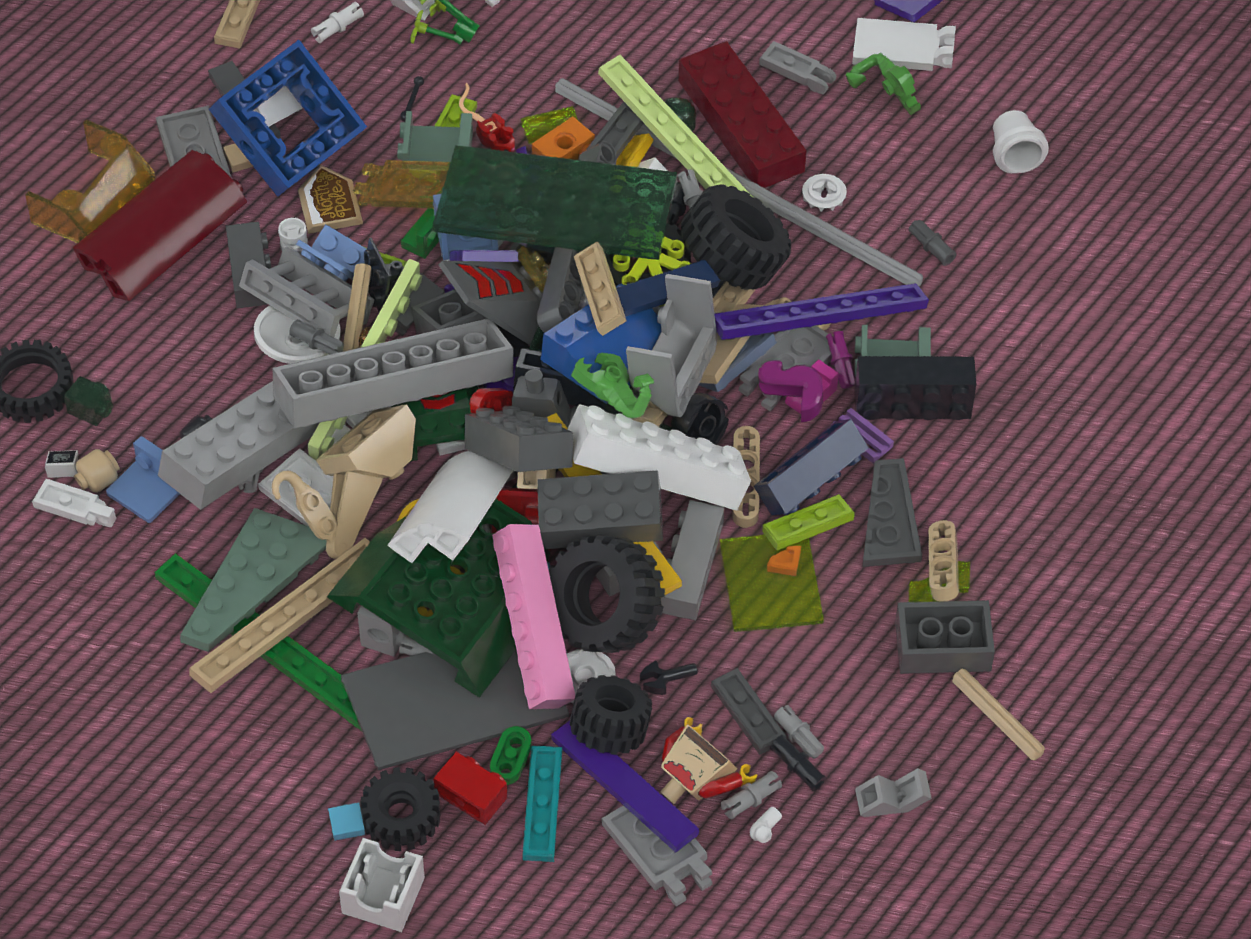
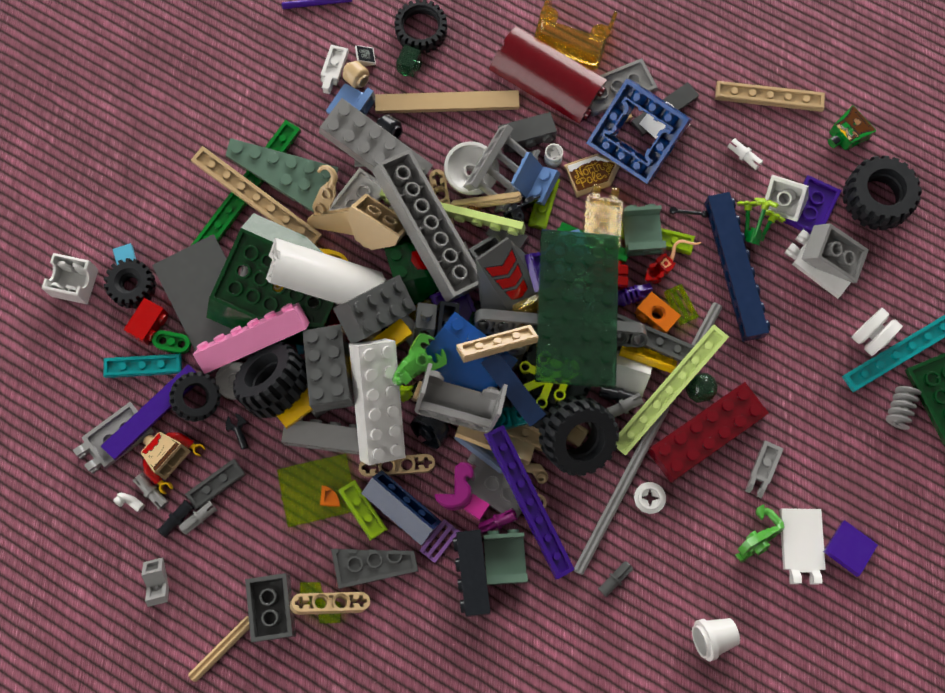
camera: 85 degrees right, 20 degrees up
(170, 357) = (447, 101): none -> tan tile
(315, 338) = (459, 178): dark grey axle -> none
(490, 398) = (419, 291): red plate -> none
(505, 54) = (736, 267): none -> dark blue brick

